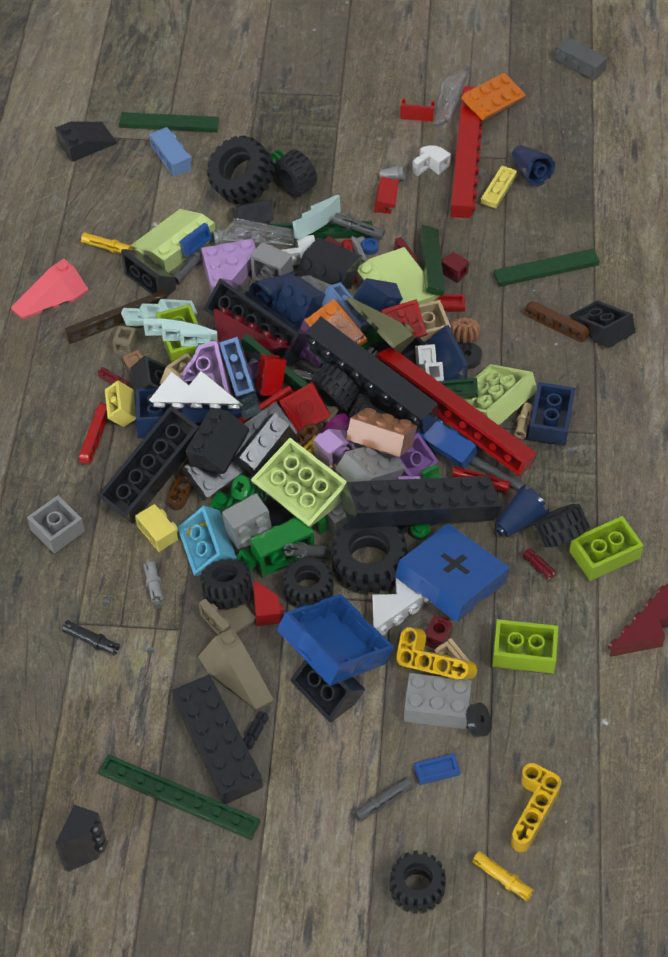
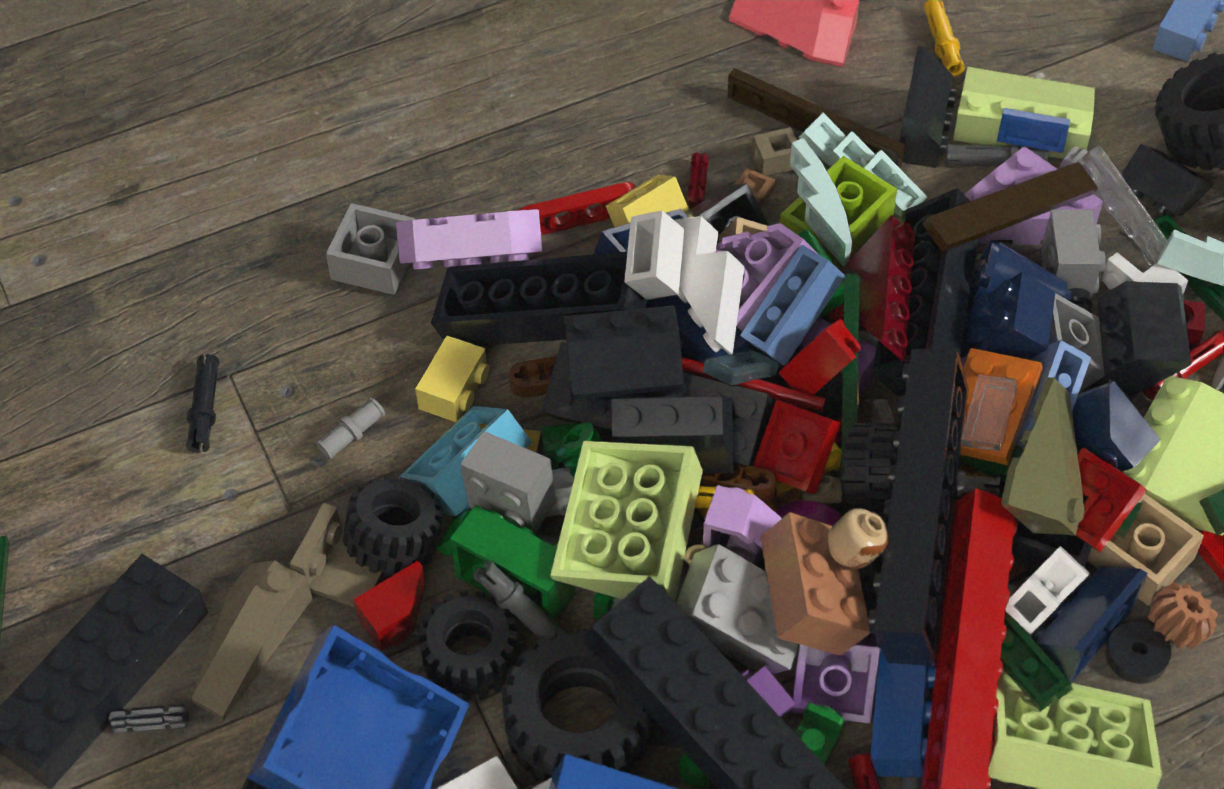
camera: 60 degrees right, 0 degrees up
(93, 474) = (469, 239): none -> lavender brick
(180, 399) = (654, 255): none -> white piece
(241, 266) = (1009, 206): none -> dark brown tile
(379, 401) = (857, 538): none -> tan head

